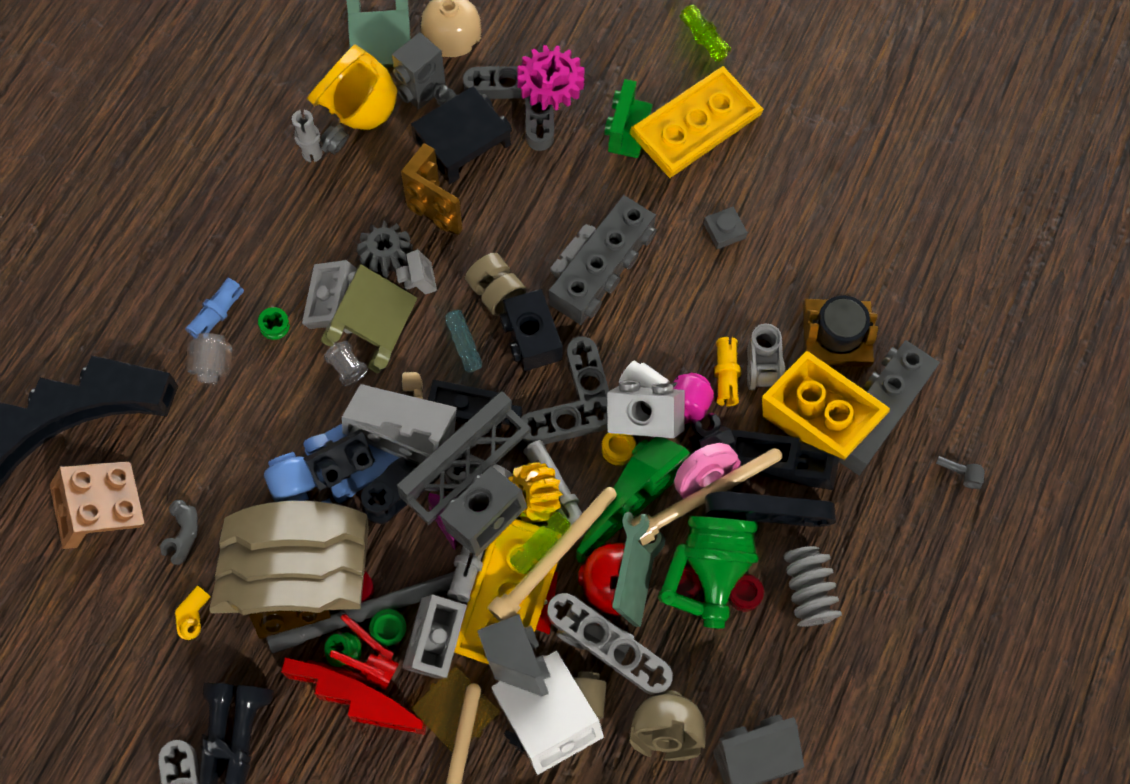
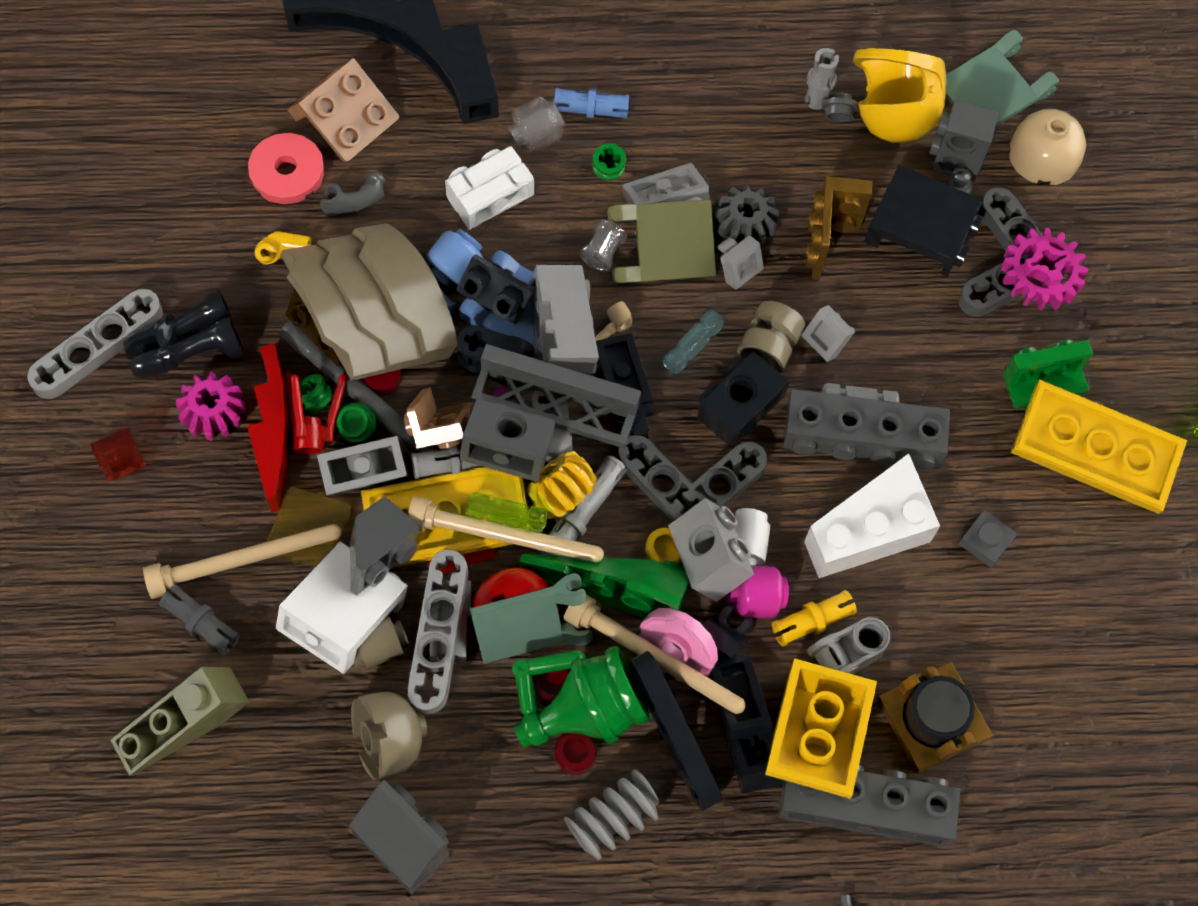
camera: 60 degrees right, 0 degrees up
(101, 565) = (286, 149): none -> coral tile
(241, 422) = (489, 186): none -> white brick
(297, 730) = (195, 406): none -> dark pink gear
(433, 558) = (434, 425): none -> medium nougat bracket
(514, 244) = (828, 333): none -> light grey tile
(678, 290) = (874, 522): none -> white wedge

